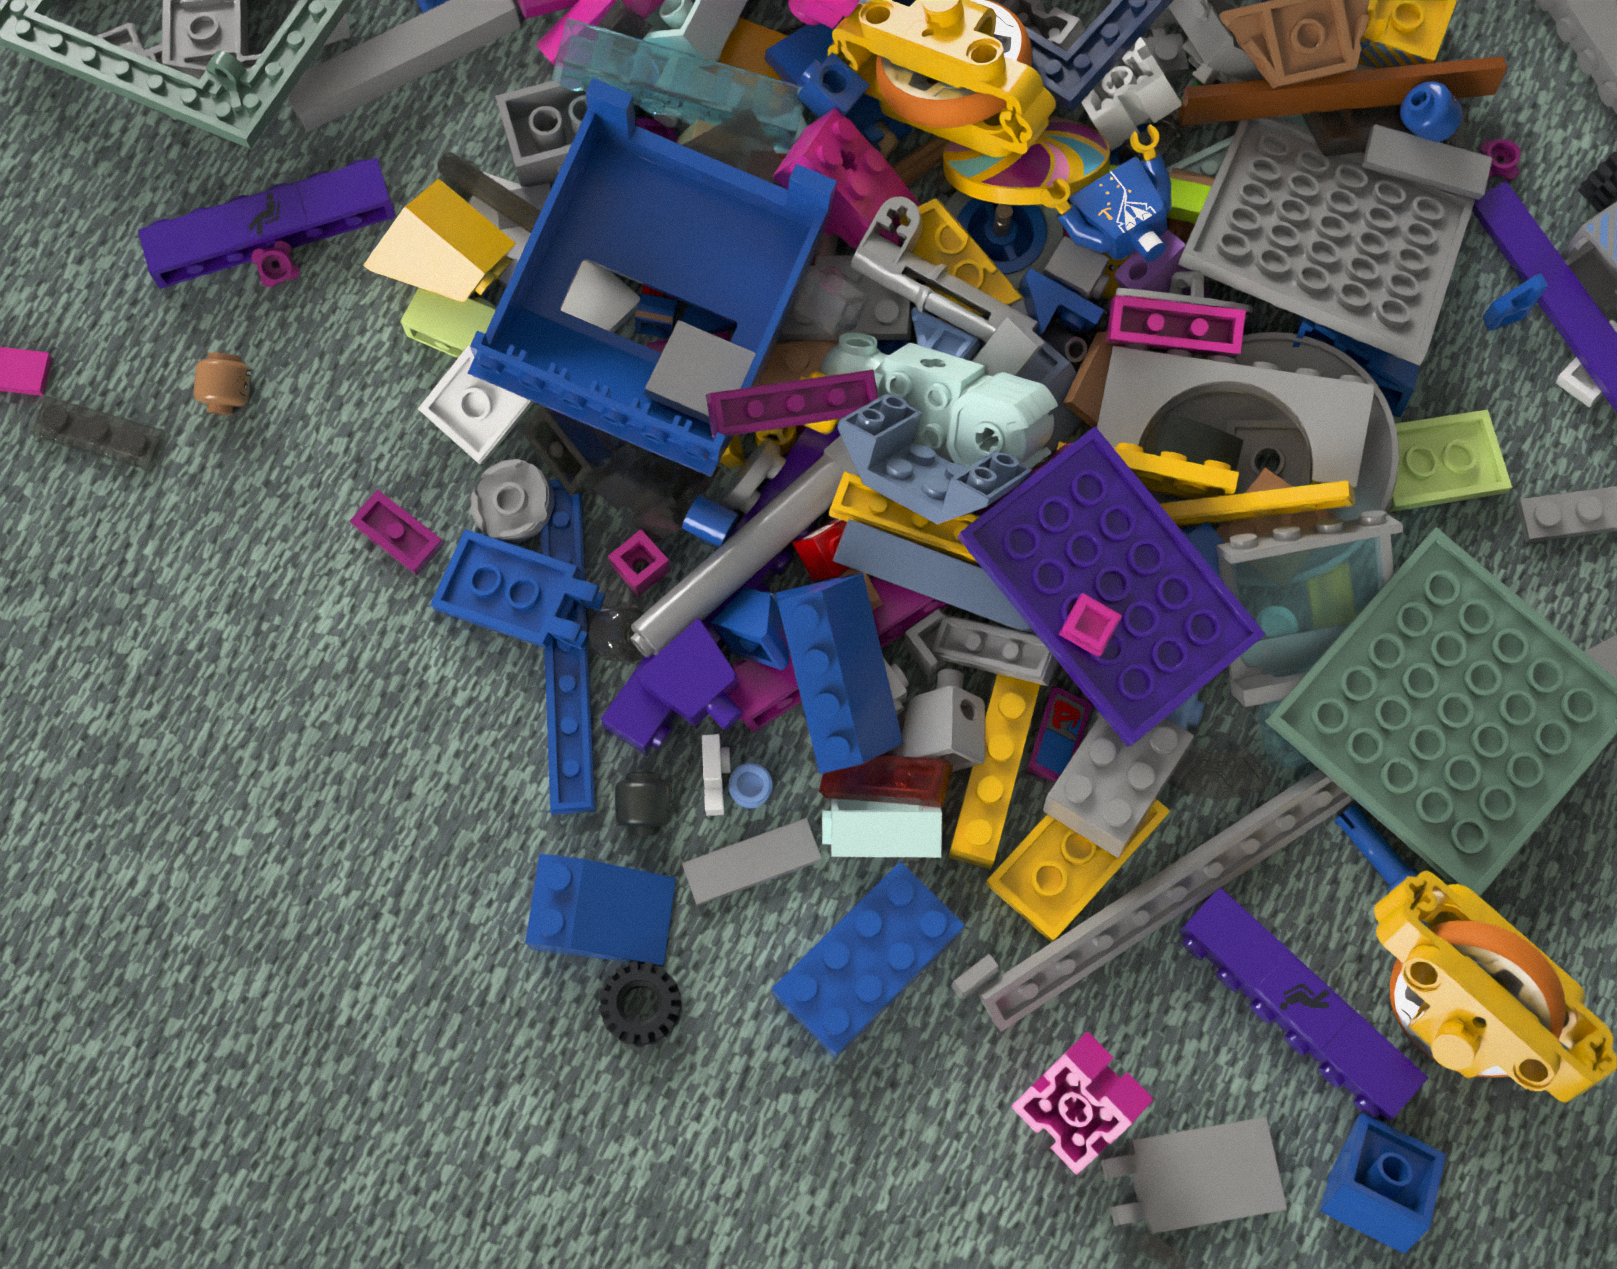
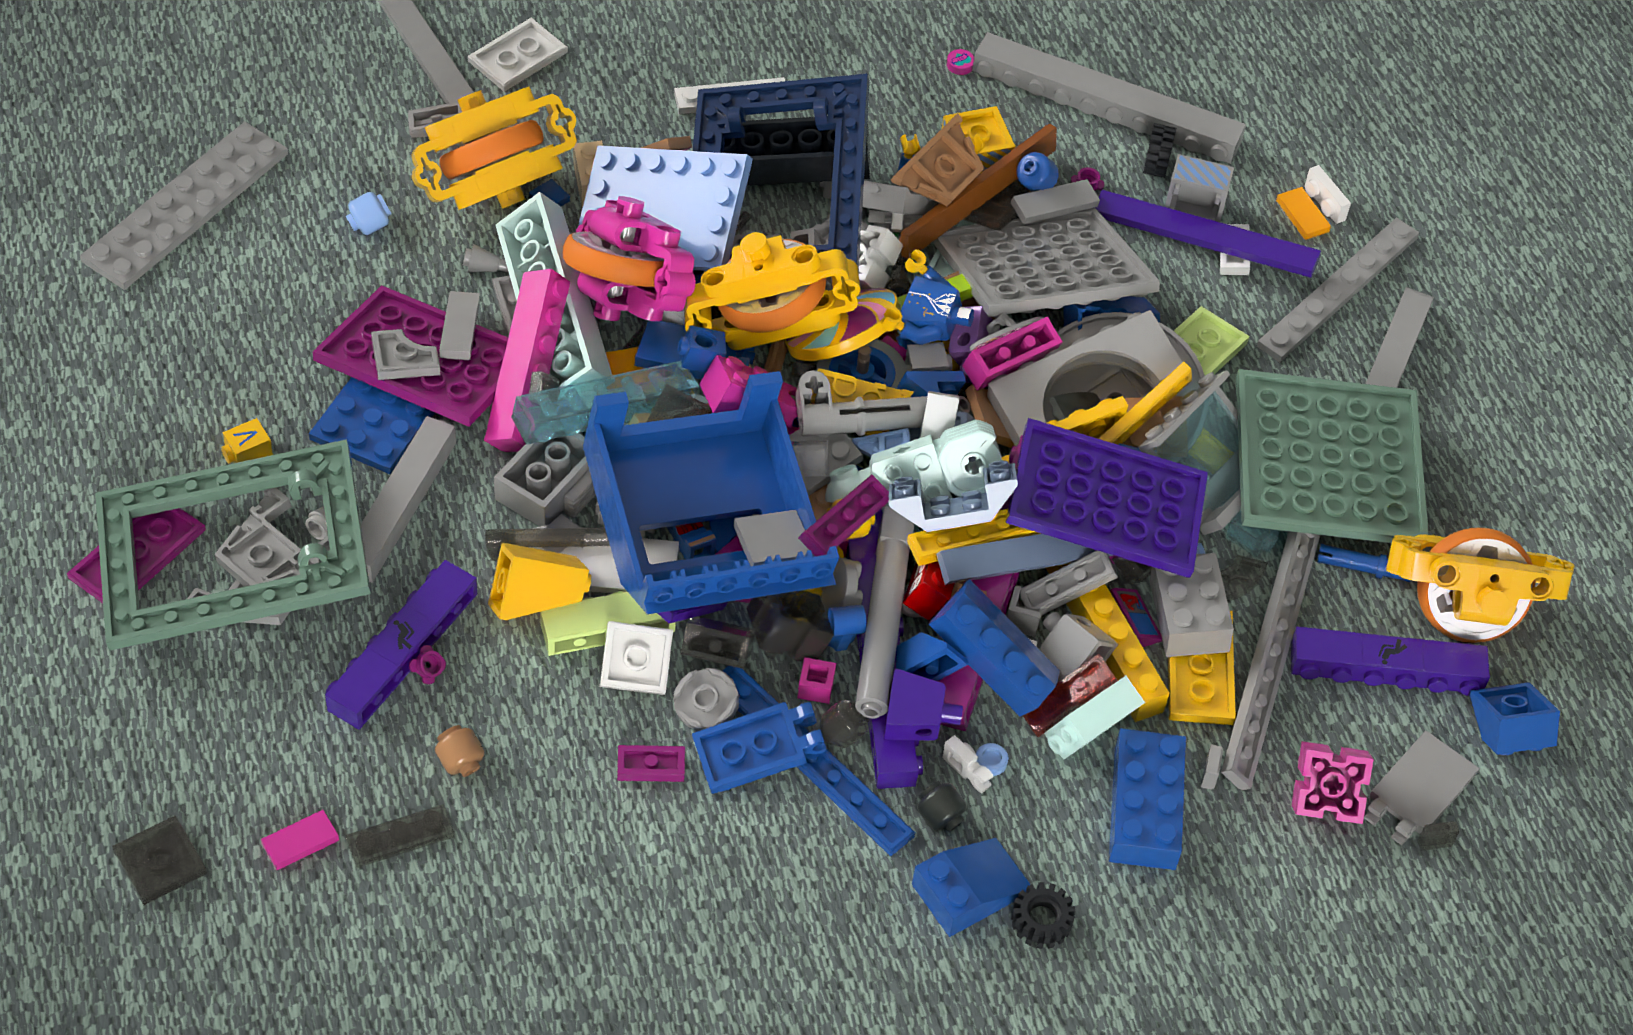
camera: 45 degrees left, 20 degrees down
(751, 862) = (1030, 799): light grey tile -> none
(1090, 625) = (1119, 520): dark pink tile -> none
(1515, 304) = (1167, 243): blue tile -> none

